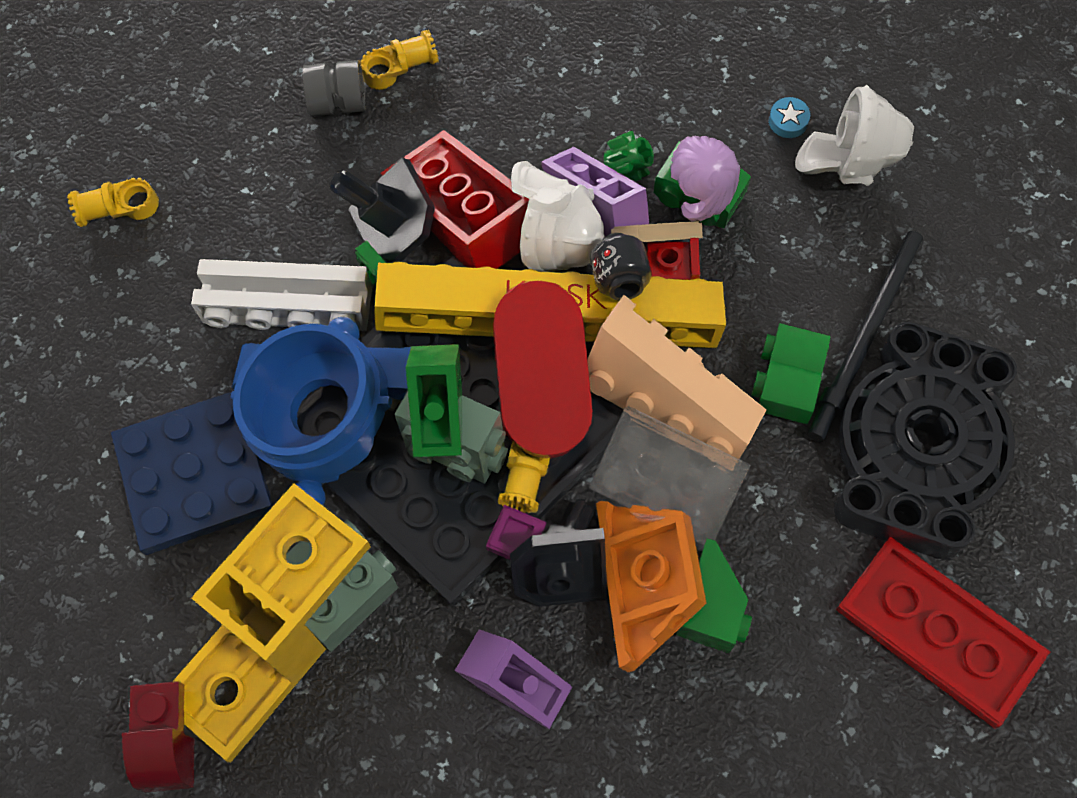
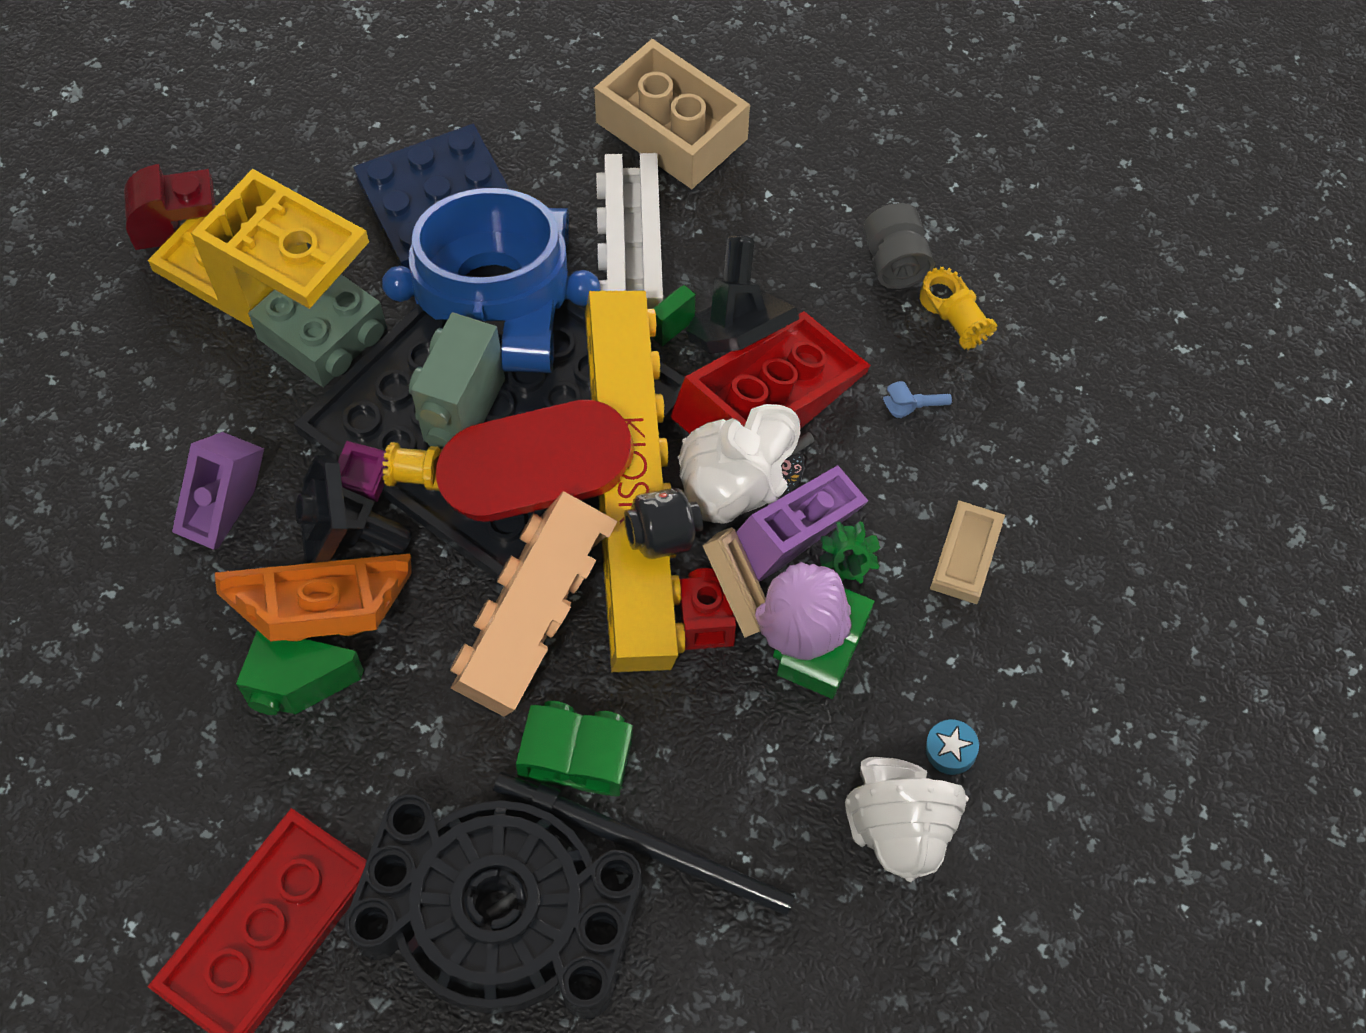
camera: 80 degrees right, 5 degrees down
(113, 201) = (729, 72): yellow connector -> none
(149, 246) = (673, 111): none -> tan brick
(435, 400) = (458, 332): green slope -> none
(482, 110) = (903, 403): none -> medium blue hand
(625, 85) = (967, 552): none -> tan tile
(669, 470) = (433, 616): clear plate -> none

